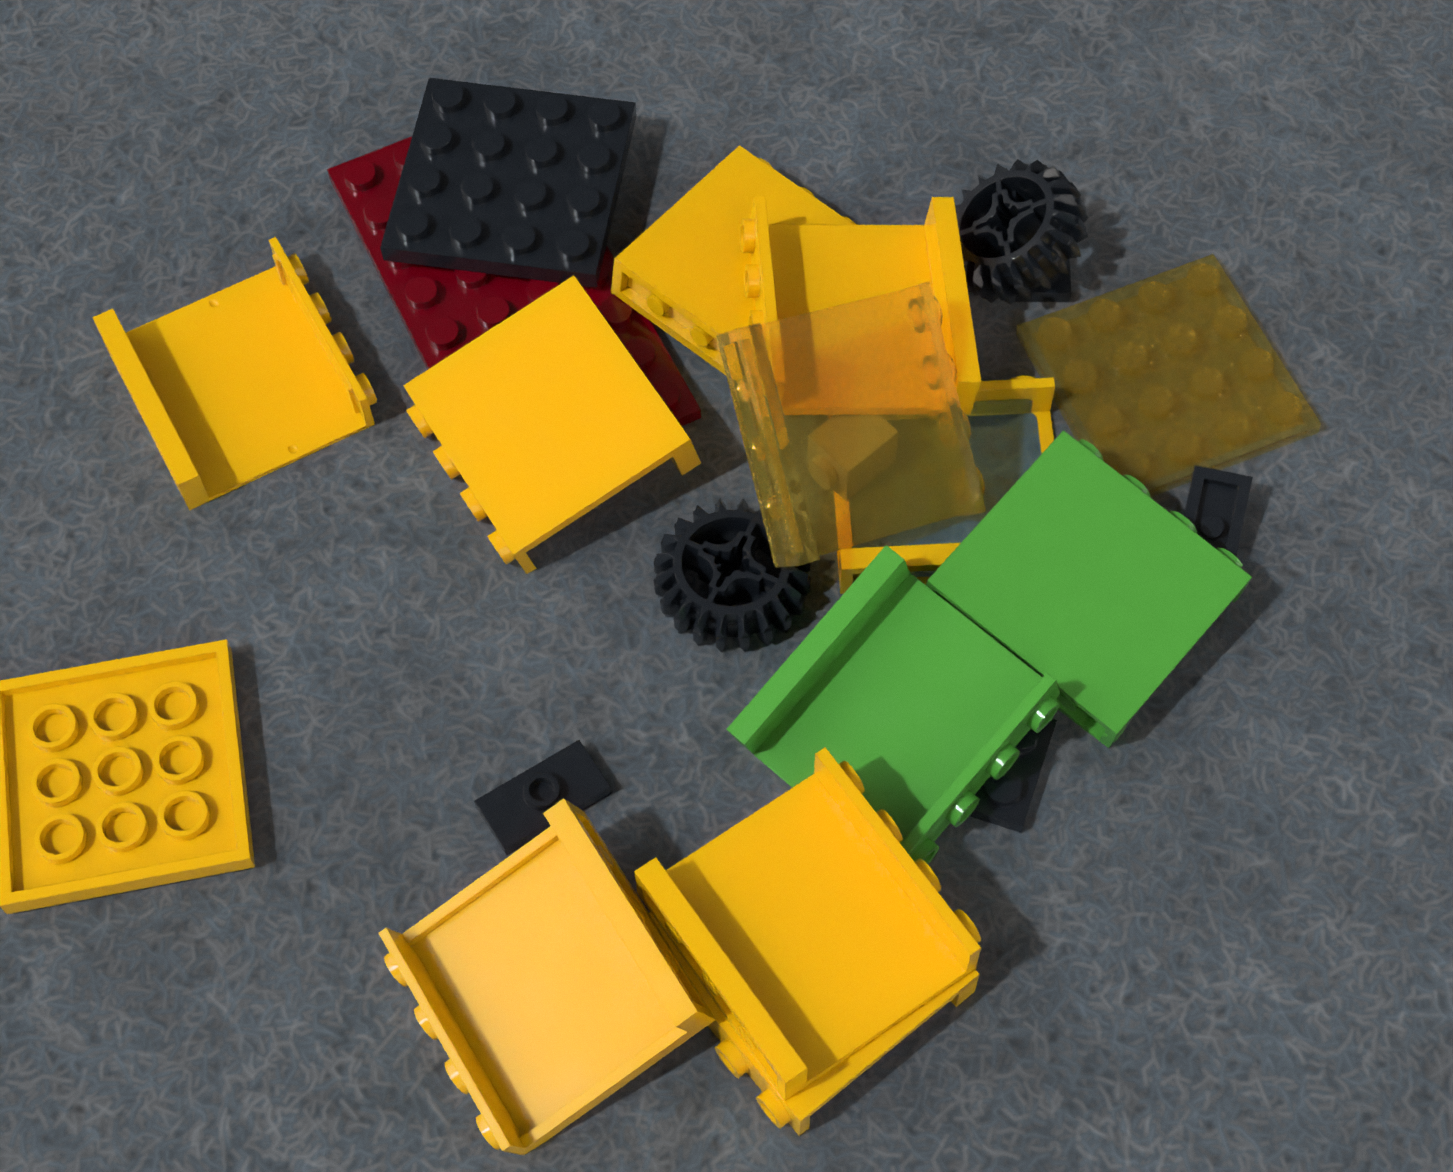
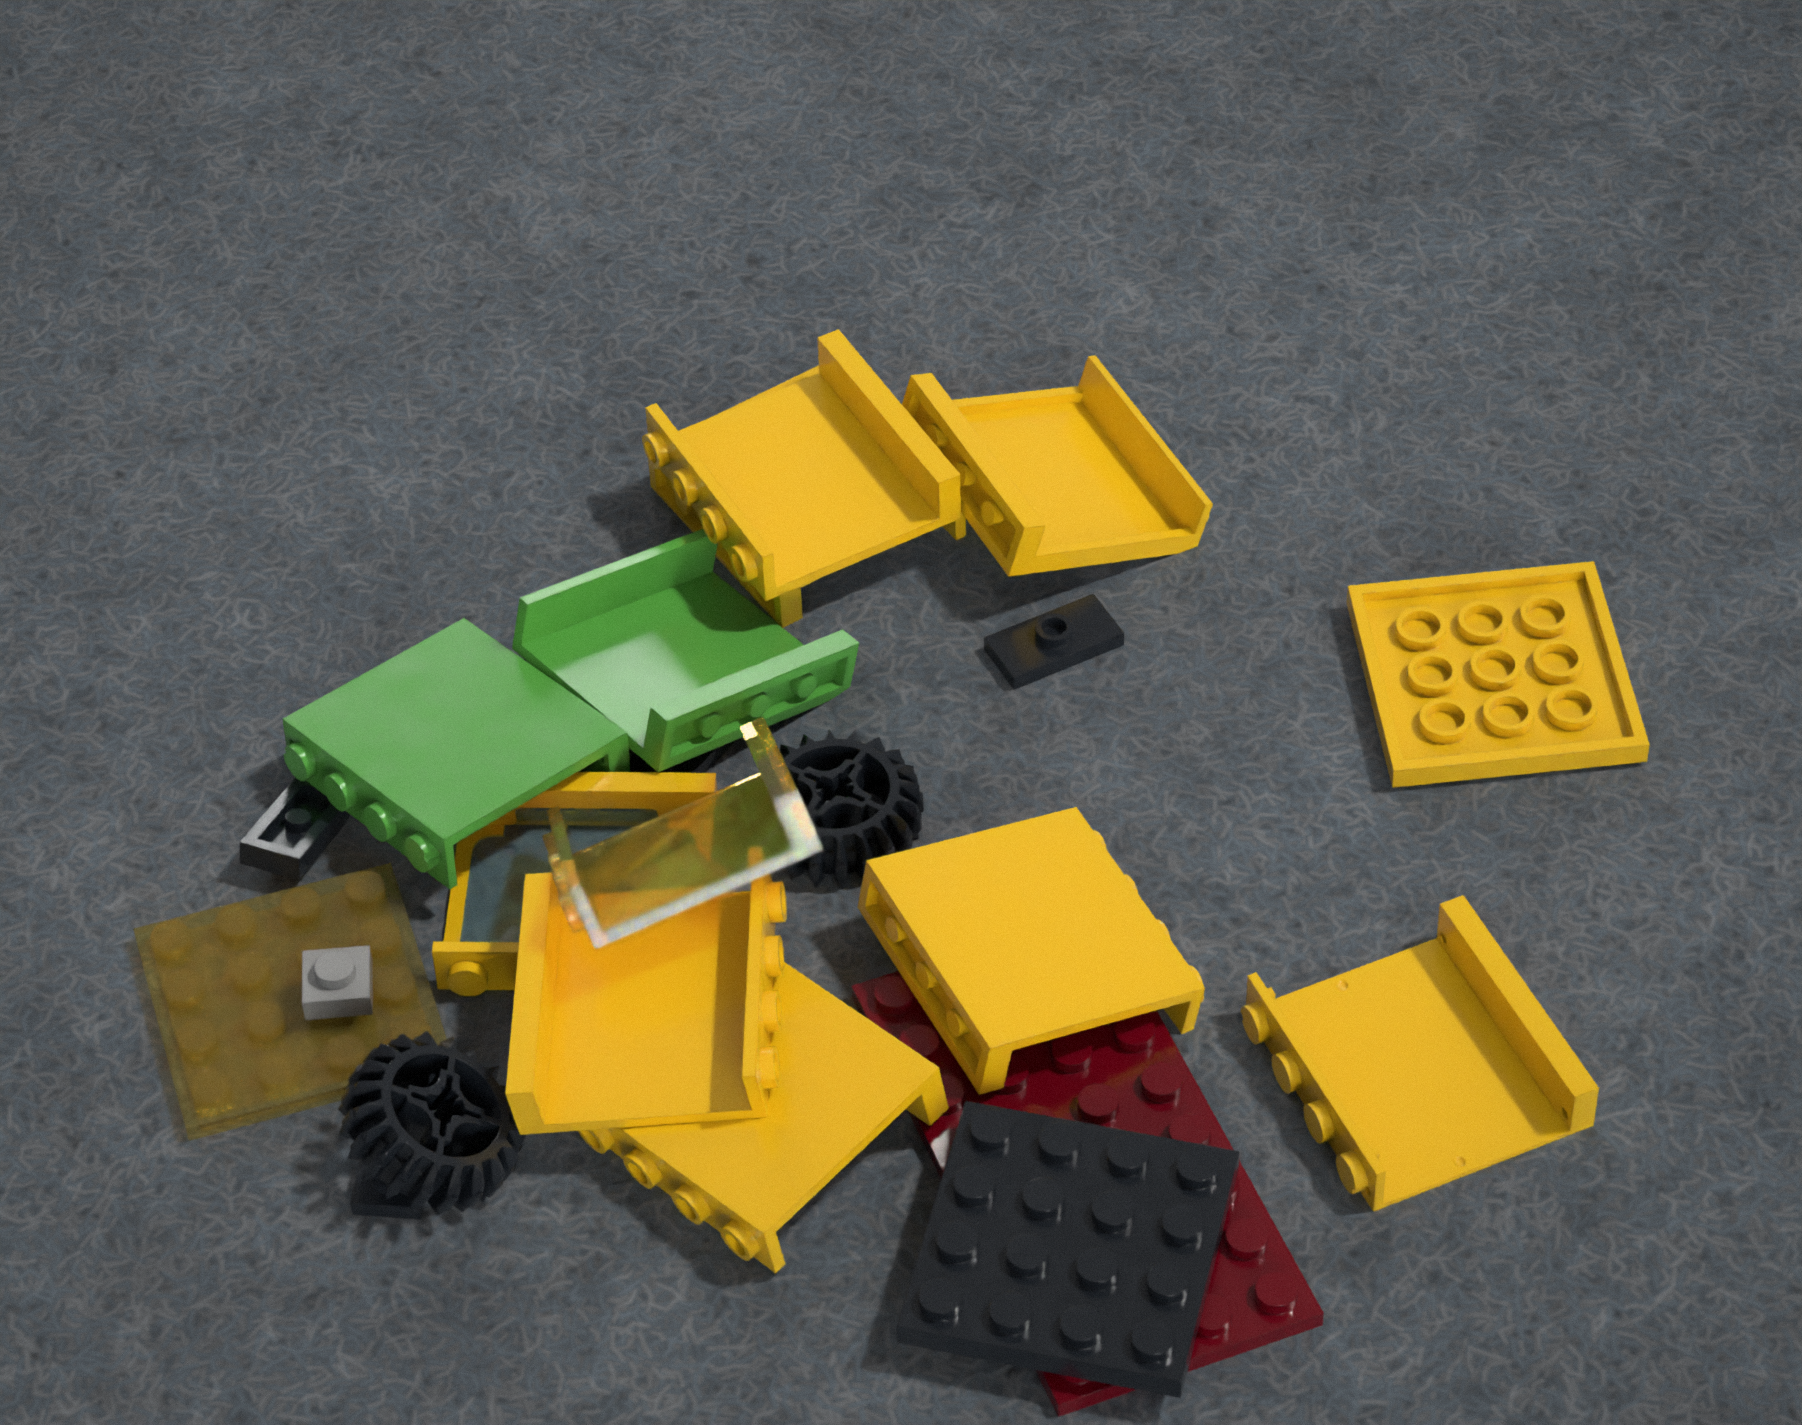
camera: 175 degrees left, 15 degrees down
(1126, 357) = (337, 982): none -> light grey plate

